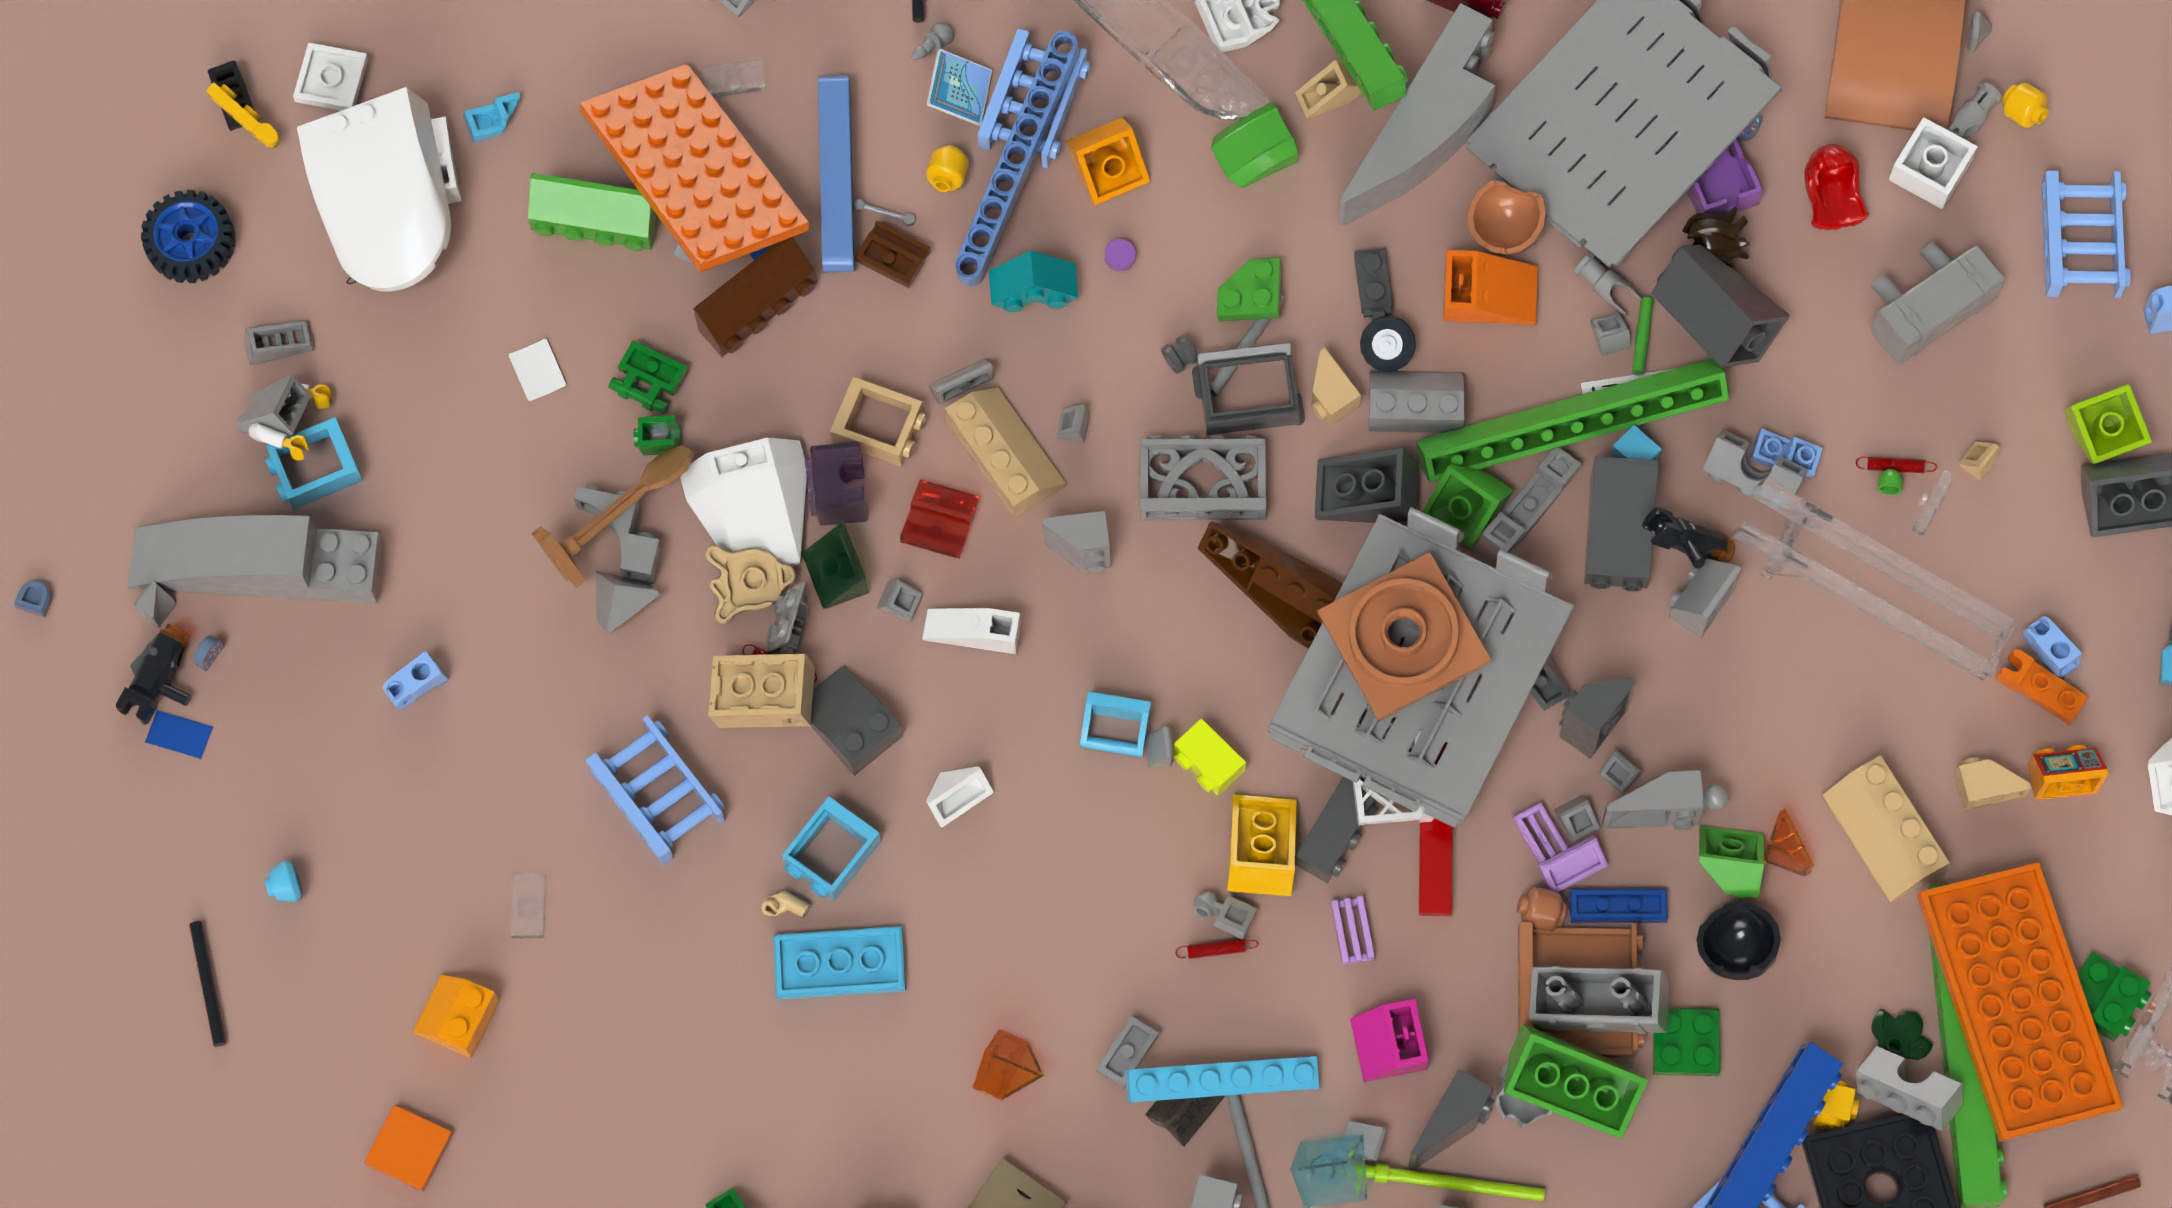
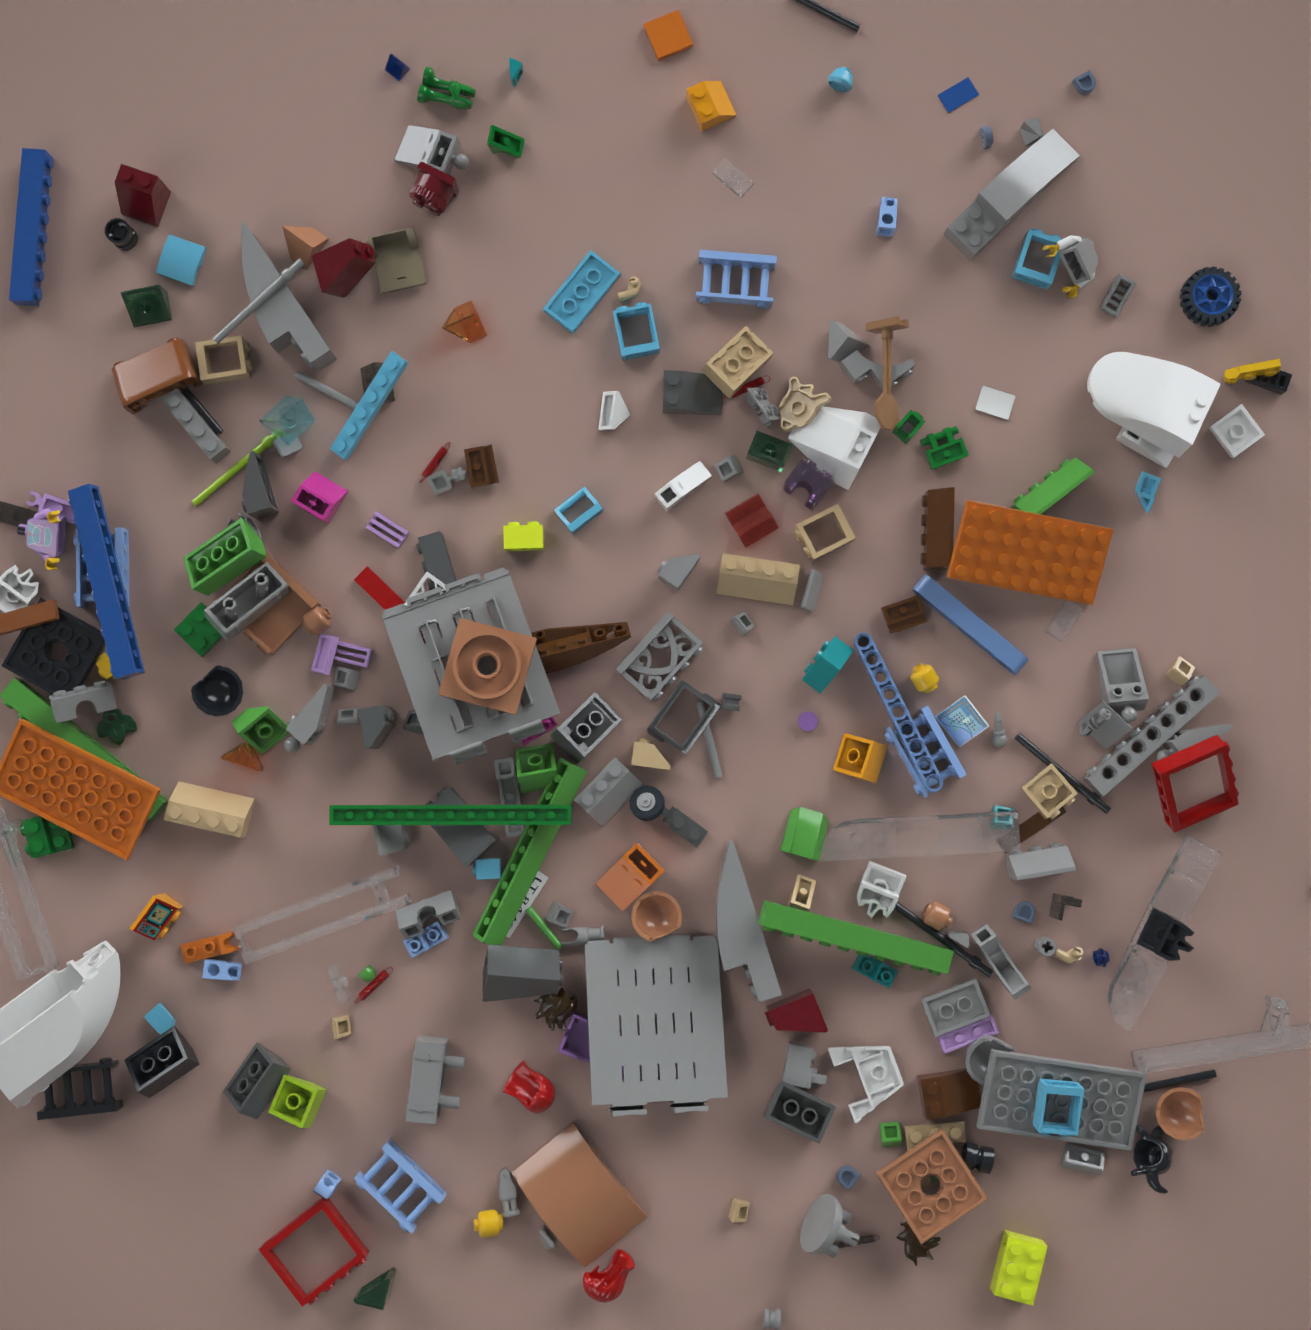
camera: 130 degrees right, 15 degrees up
(153, 672) = (999, 104): black piece -> none
(908, 219) = (916, 639): light grey hinge -> none
(1127, 1051) = (423, 379): light grey plate -> none
(1159, 748) = (549, 520): light grey slope -> none
(1169, 886) = (481, 466): none -> reddish brown plate
(1251, 292) = (731, 764): bright green plate -> none
(1262, 845) = (462, 524): yellow slope -> none
(1617, 529) = (450, 815): none -> green plate
(1618, 905) = (289, 658): blue tile -> none
(1690, 538) = (420, 849): black piece -> none
(1932, 163) = (498, 1148): white brick -> none
(1988, 783) = (188, 875): tan slope -> none

